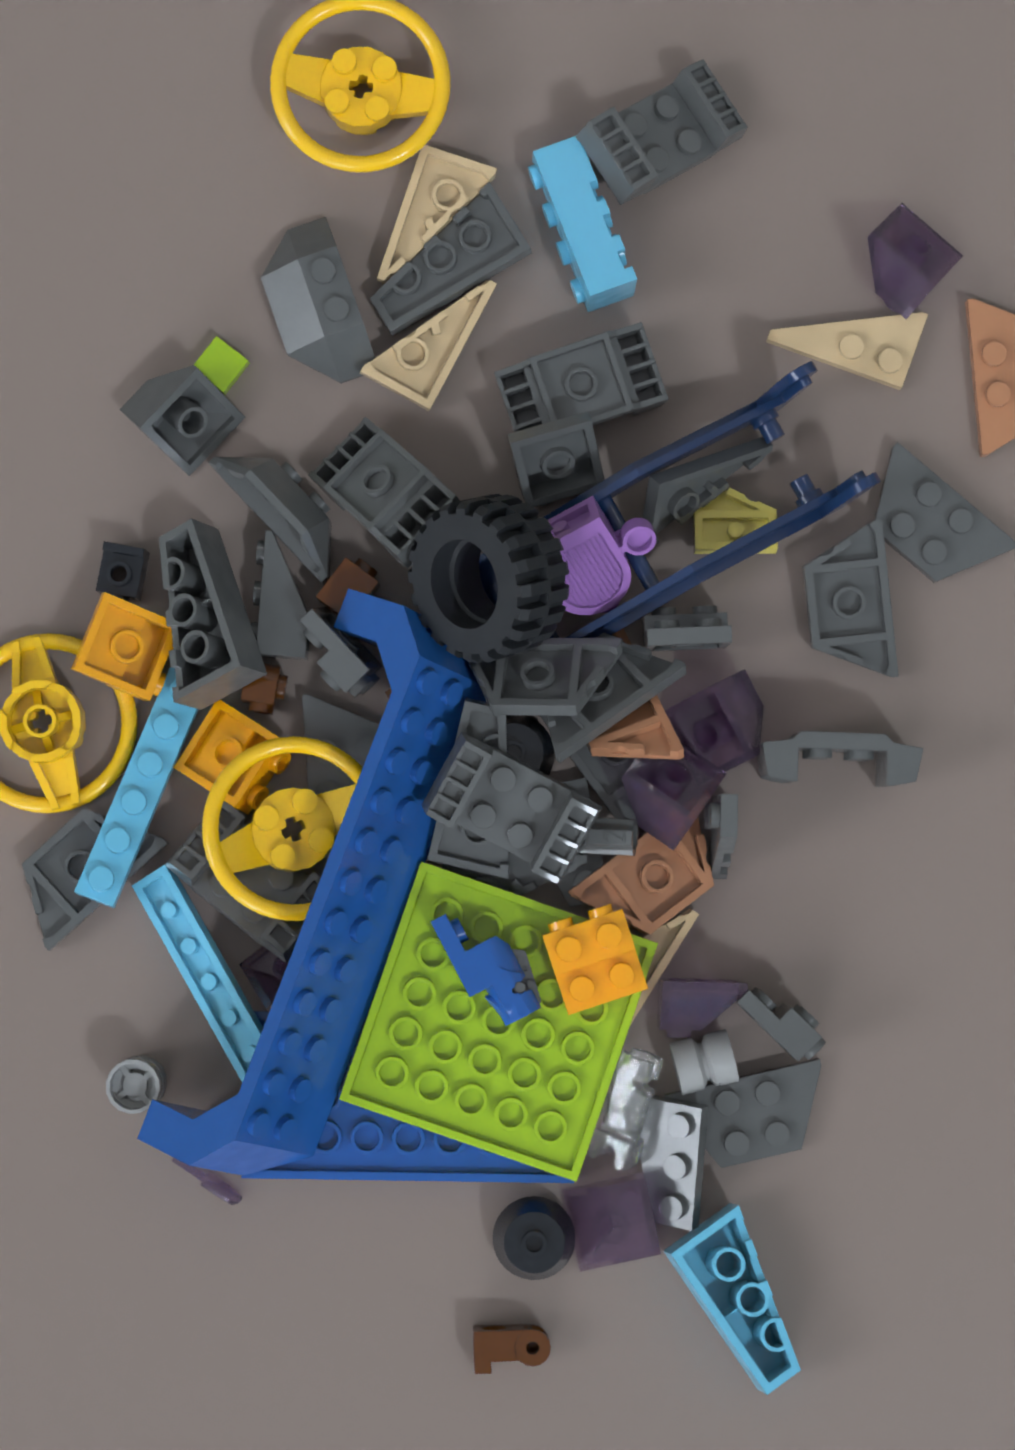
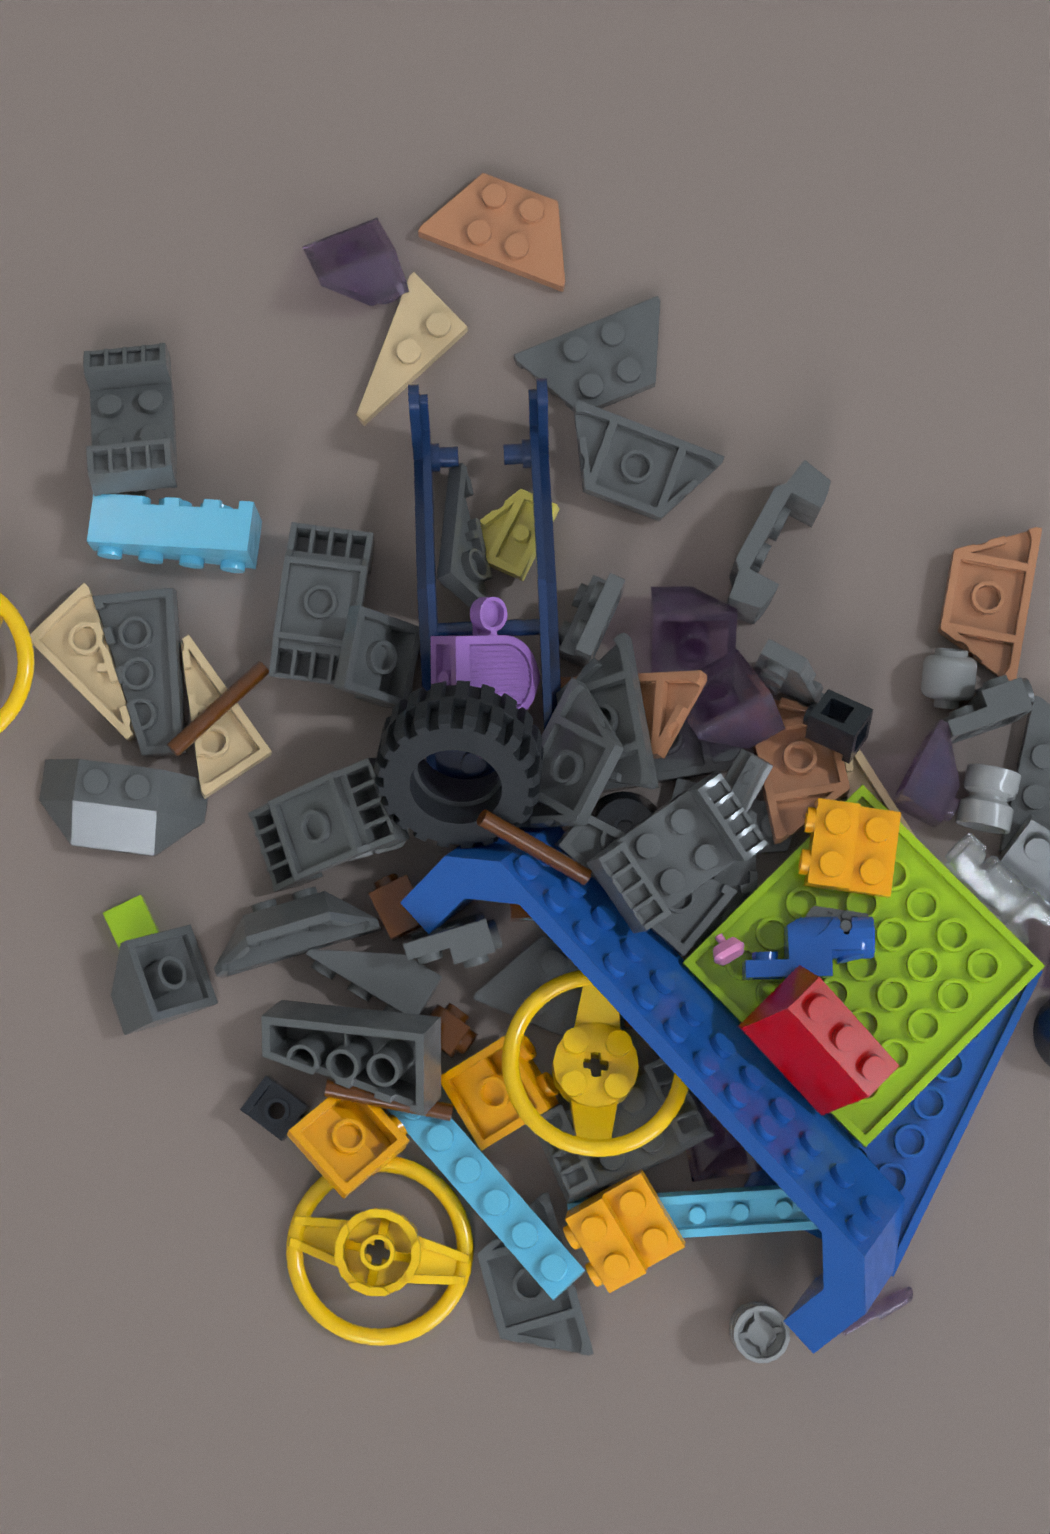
camera: 65 degrees left, 5 degrees down
(162, 923) = (622, 1231): none -> light orange plate
(188, 714) = (354, 1094): none -> reddish brown bar
(403, 1012) = (818, 1043): none -> red slope
(443, 343) = (218, 708): none -> reddish brown bar
(449, 679) = (534, 847): none -> reddish brown bar
(450, 894) = (727, 949): none -> bright pink rock
(701, 895) = (838, 724): none -> black brick
(797, 974) = (949, 677): none -> light grey head
(888, 978) = (990, 599): none -> nougat wing

